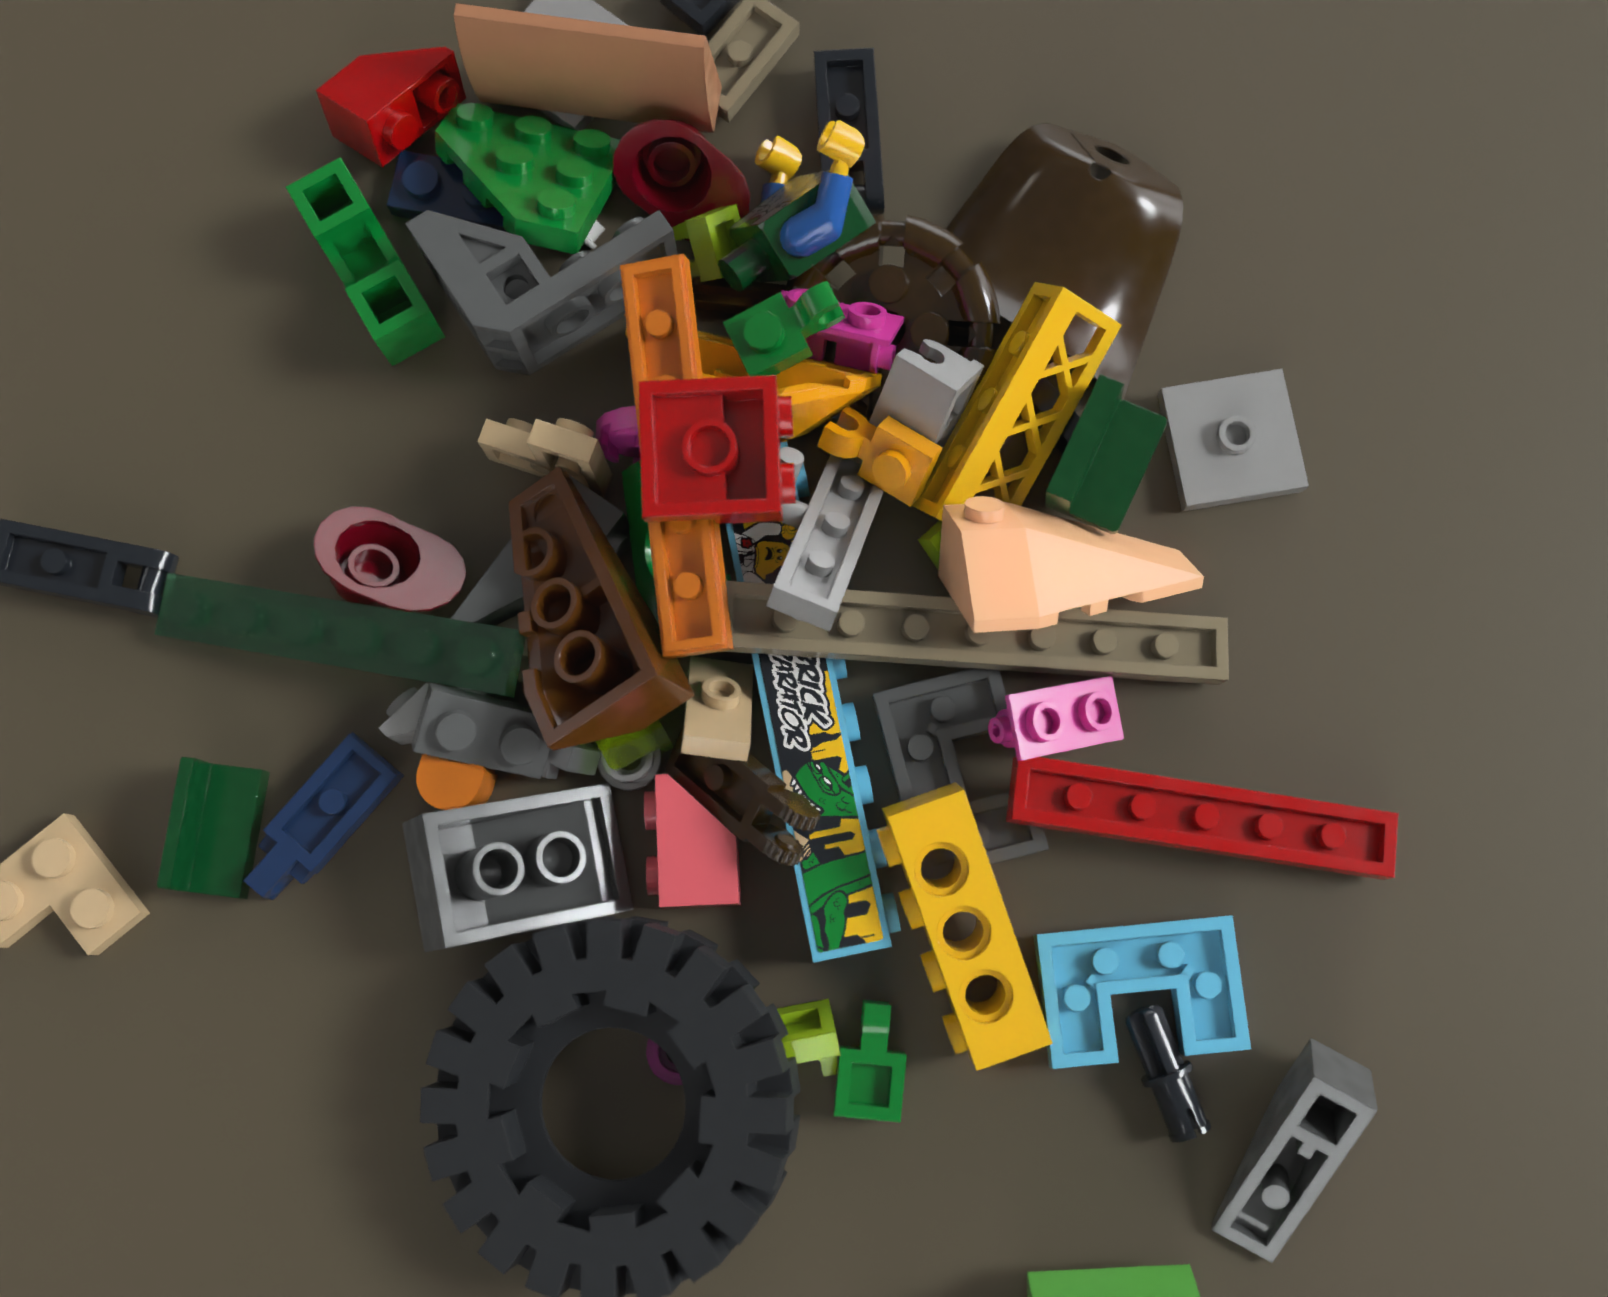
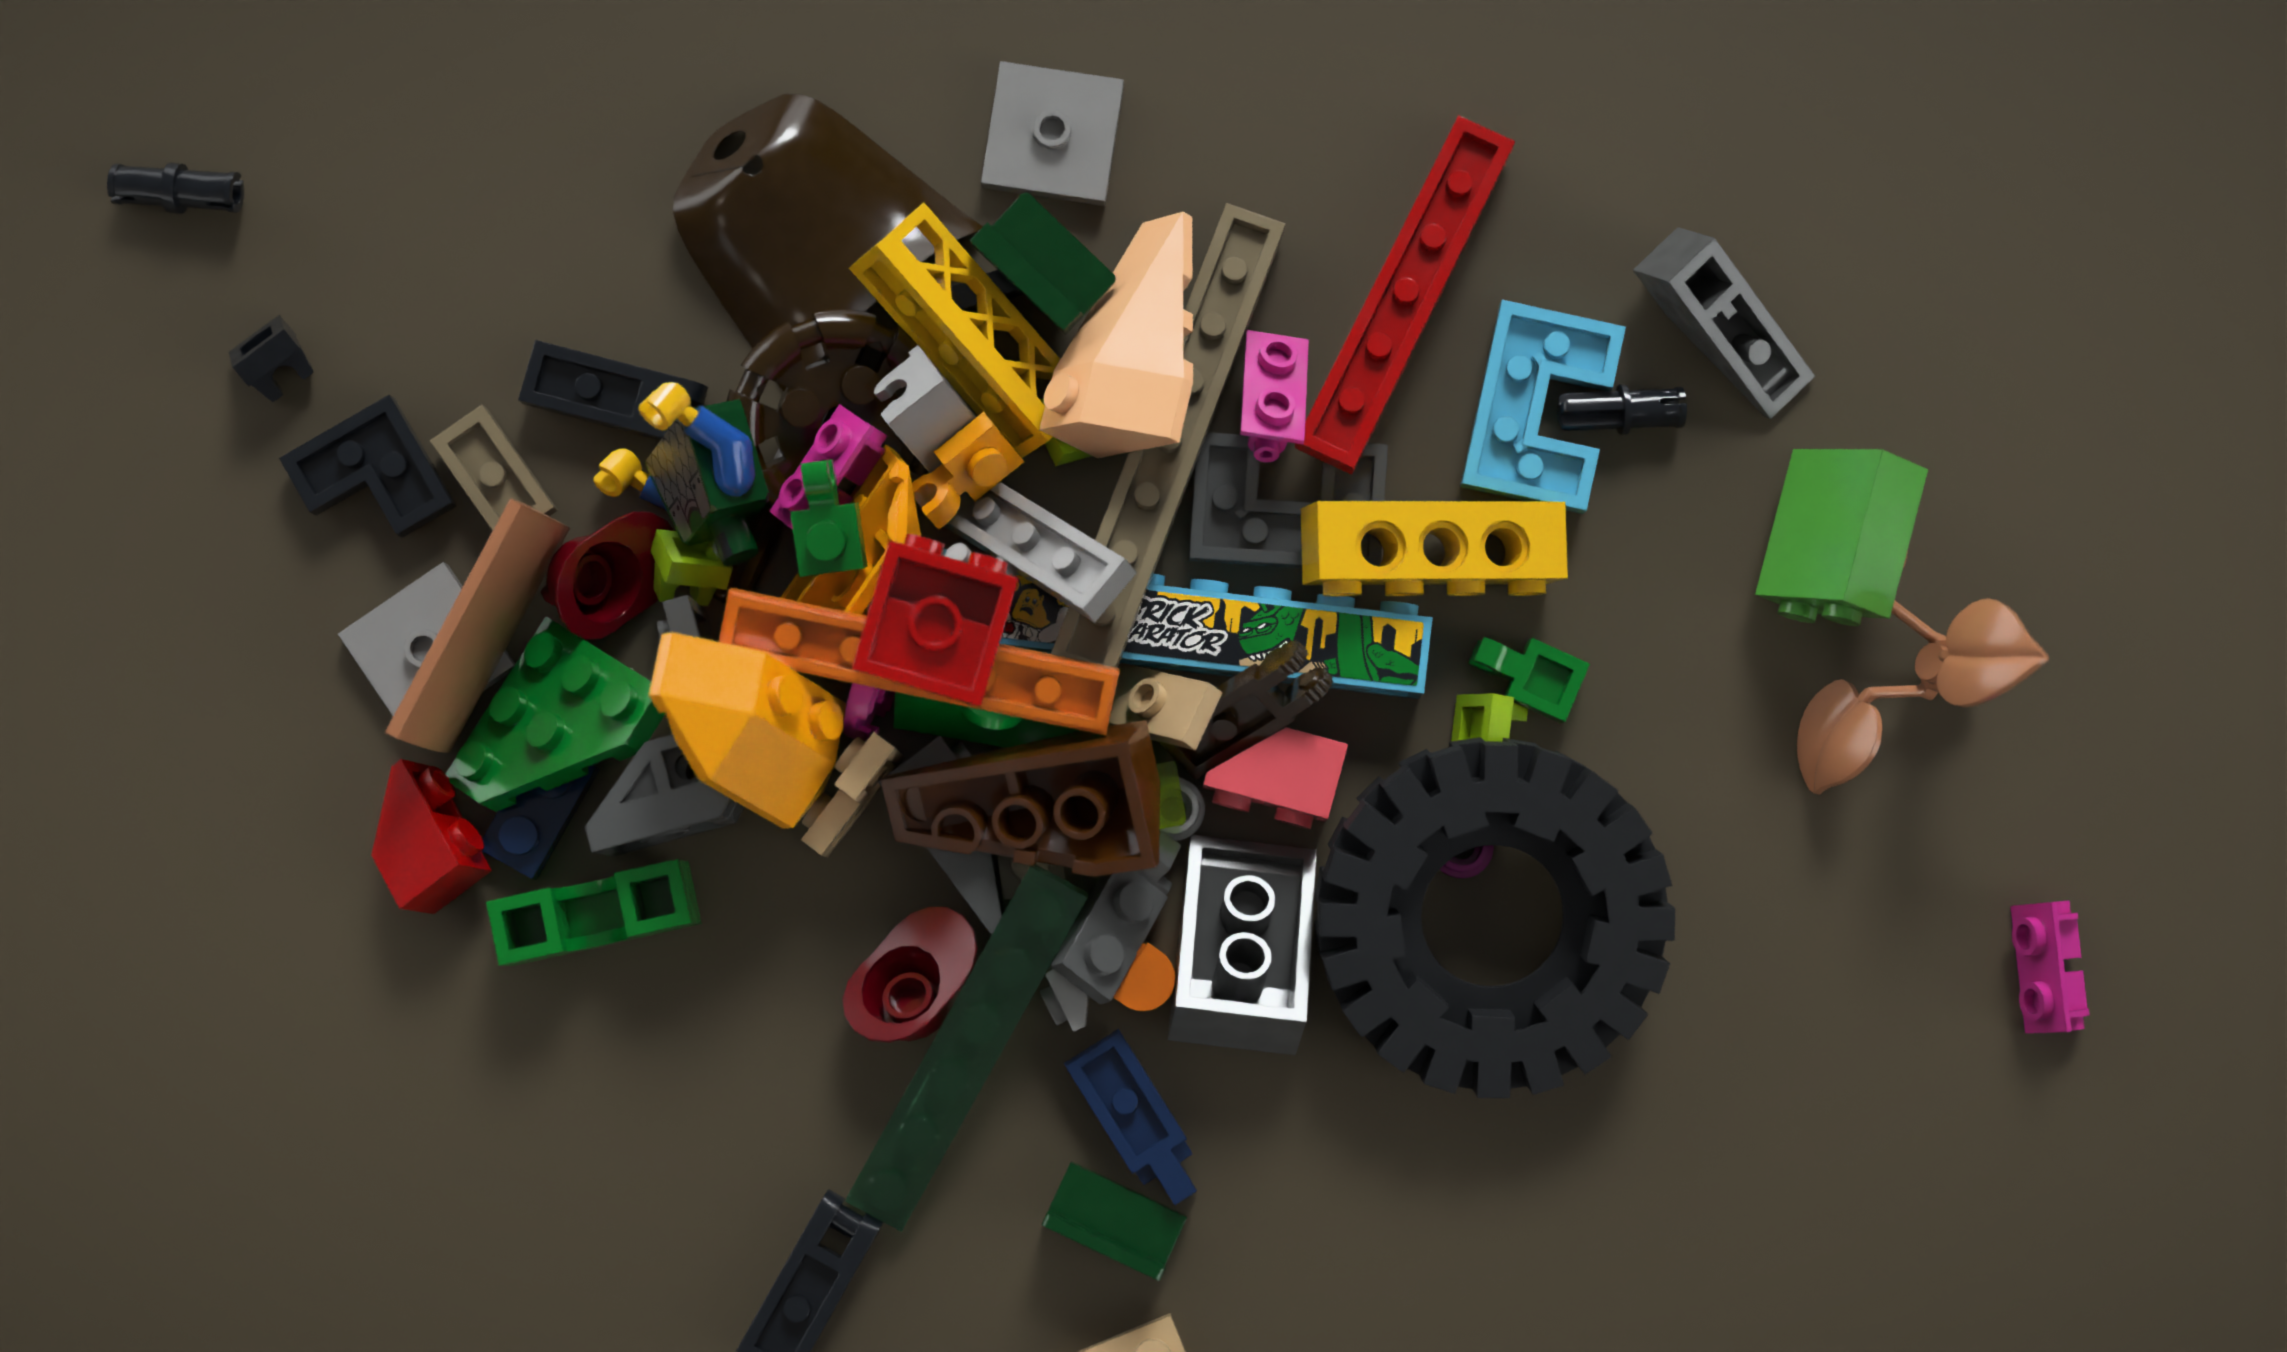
camera: 70 degrees left, 5 degrees up
(560, 317) = (748, 724): none -> light orange wedge

